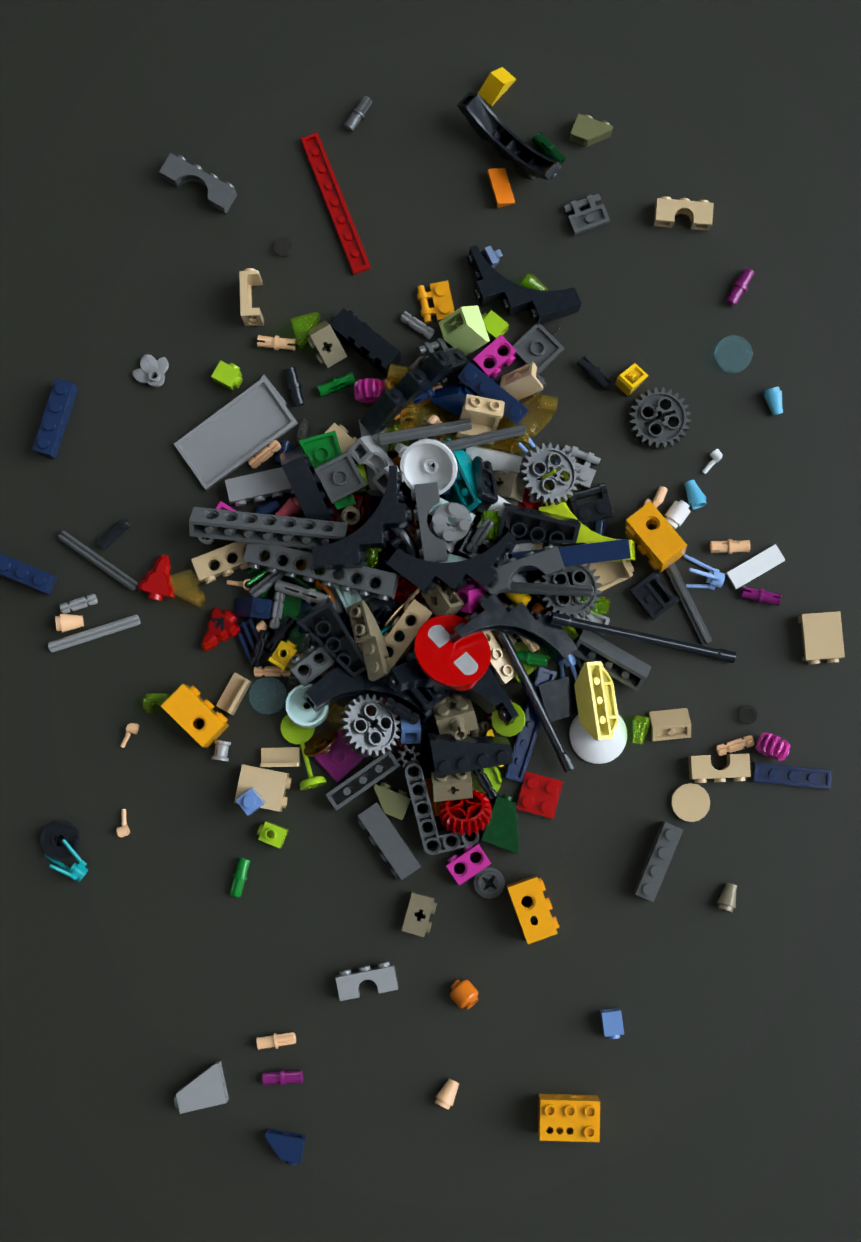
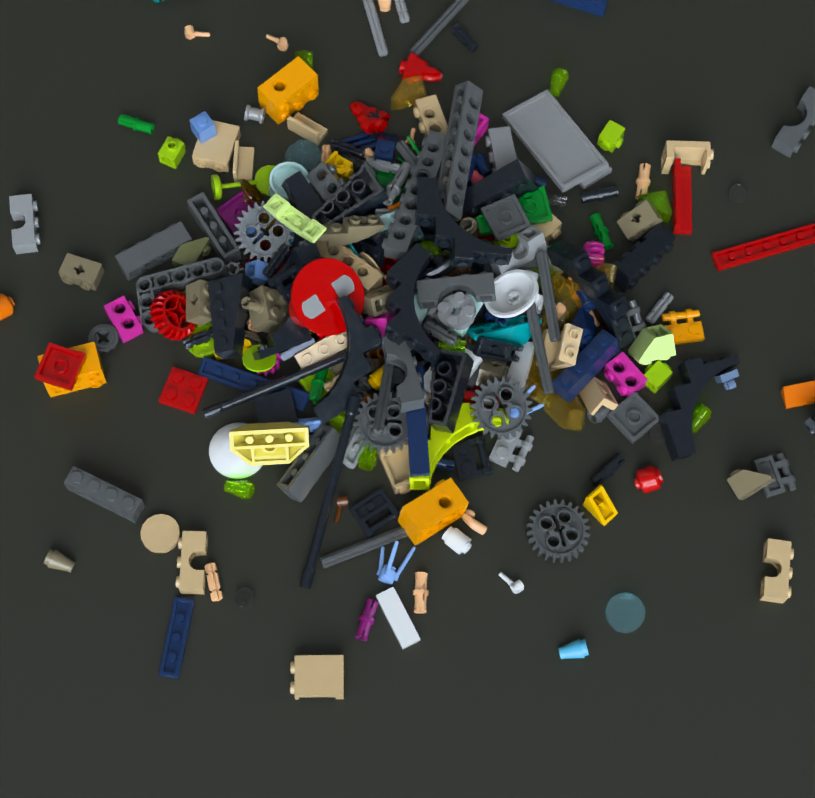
camera: 85 degrees right, 15 degrees down
(149, 369) = (617, 75): light grey plate -> none
(163, 432) = (558, 81): none -> clear neon green cone
(264, 454) = (534, 164): light nougat axle -> none
(294, 303) = (681, 198): none -> red fence
(366, 690) = (294, 219): none -> yellowish green slope
(503, 825) = (157, 352): dark green slope -> none
(541, 918) = (60, 366): none -> red plate
(599, 237) = (746, 482): none -> dark tan slope
(601, 333) = (648, 479): none -> red head
(645, 628) = (342, 501): none -> reddish brown hand
(670, 724) = (241, 518): tan panel -> none
(695, 496) = (476, 560): medium azure cone -> none
(740, 286) = (697, 624): magenta pin -> none
(773, 746) = (207, 615): dark pink gear -> none

